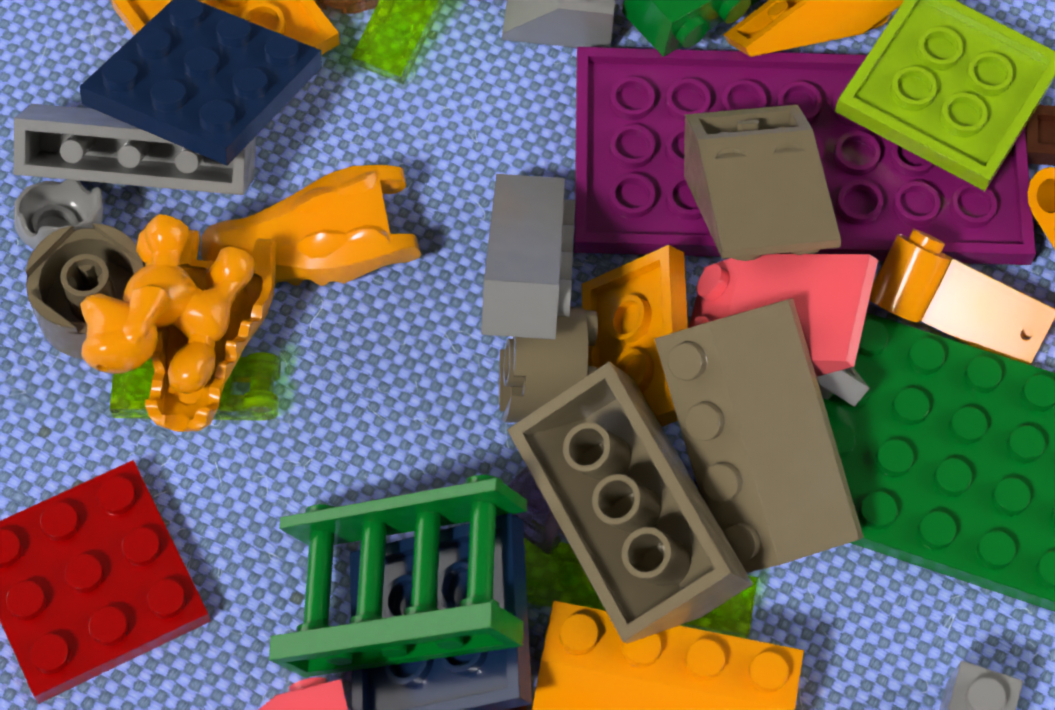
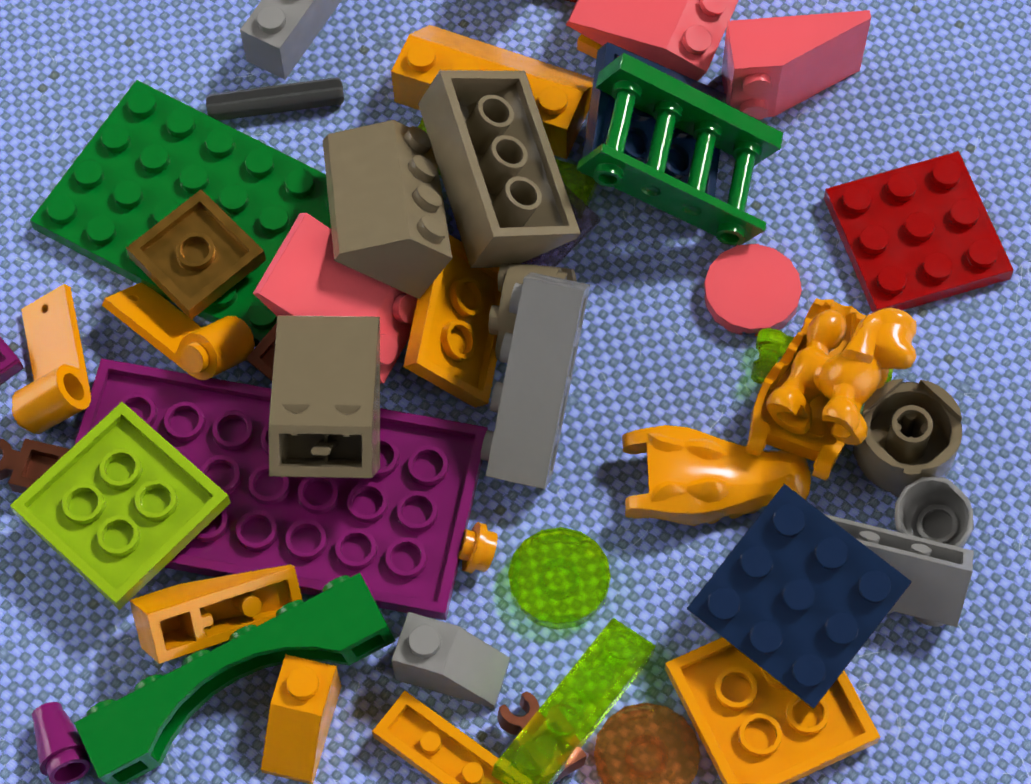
camera: 165 degrees left, 0 degrees up
(288, 466) = (752, 289): none -> coral tile
(465, 114) = (559, 578): none -> clear neon green tile
(557, 120) = (478, 548): none -> light orange plate
(948, 637) = (275, 99): none -> dark grey axle
(970, 373) = (196, 254): none -> pearl gold plate

